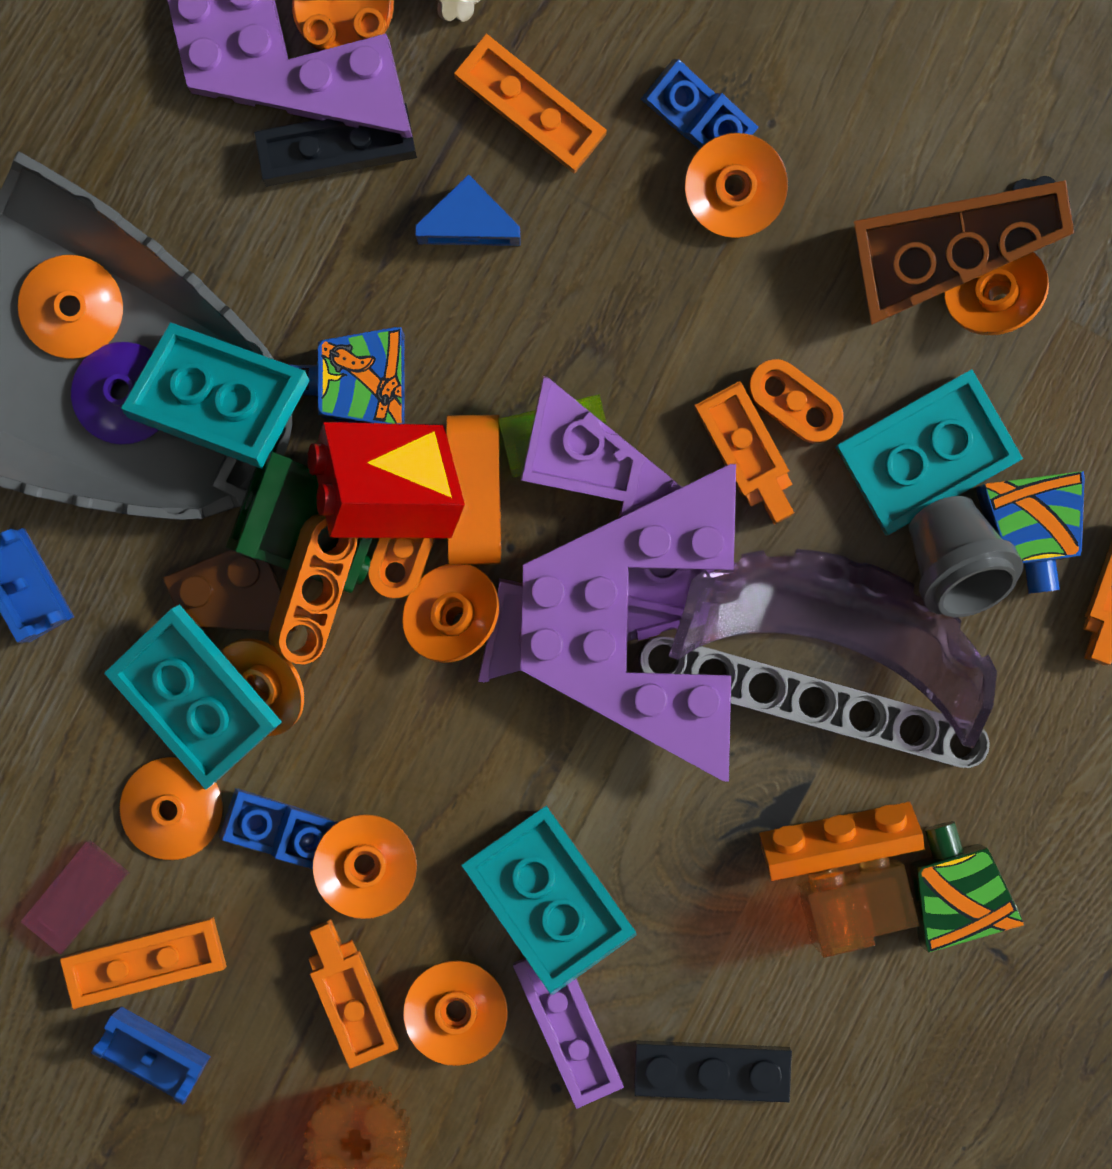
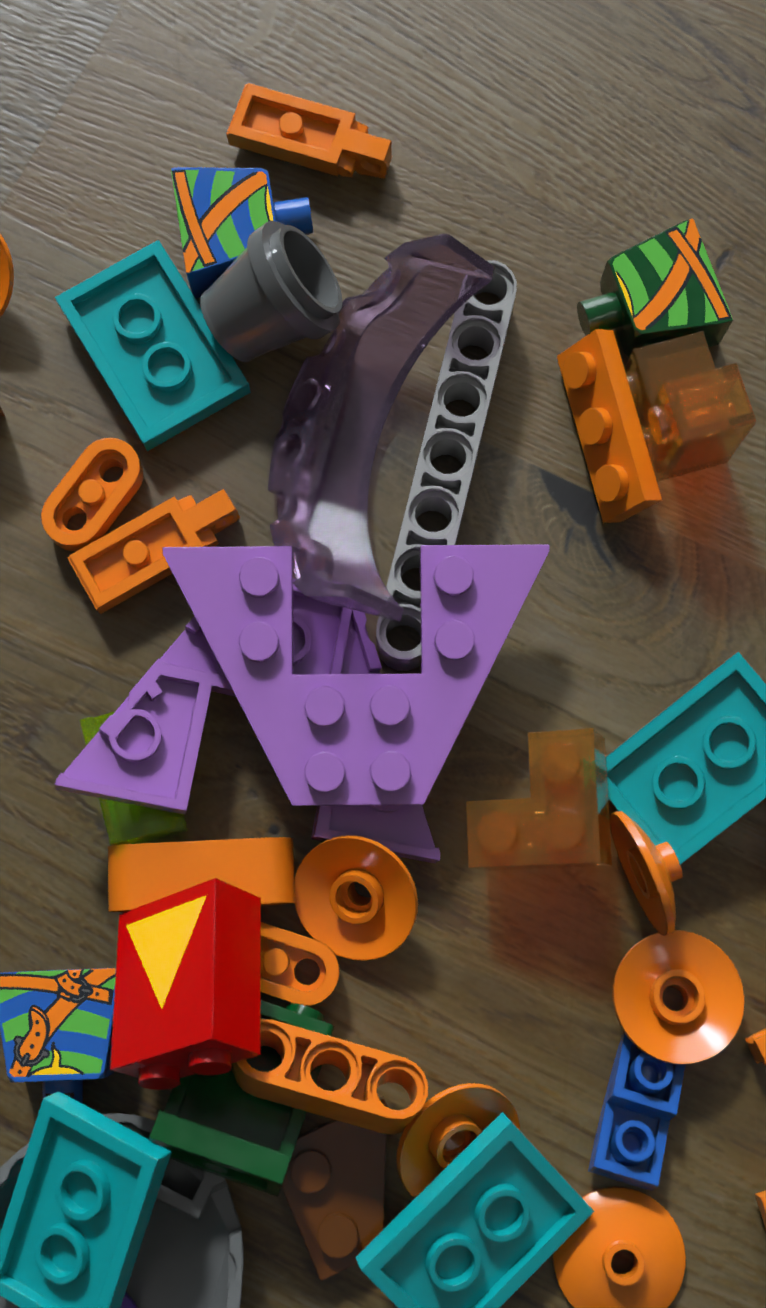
camera: 90 degrees left, 10 degrees down
(463, 850) = (648, 870): none -> orange dish
(509, 784) = (561, 822): none -> clear orange brick

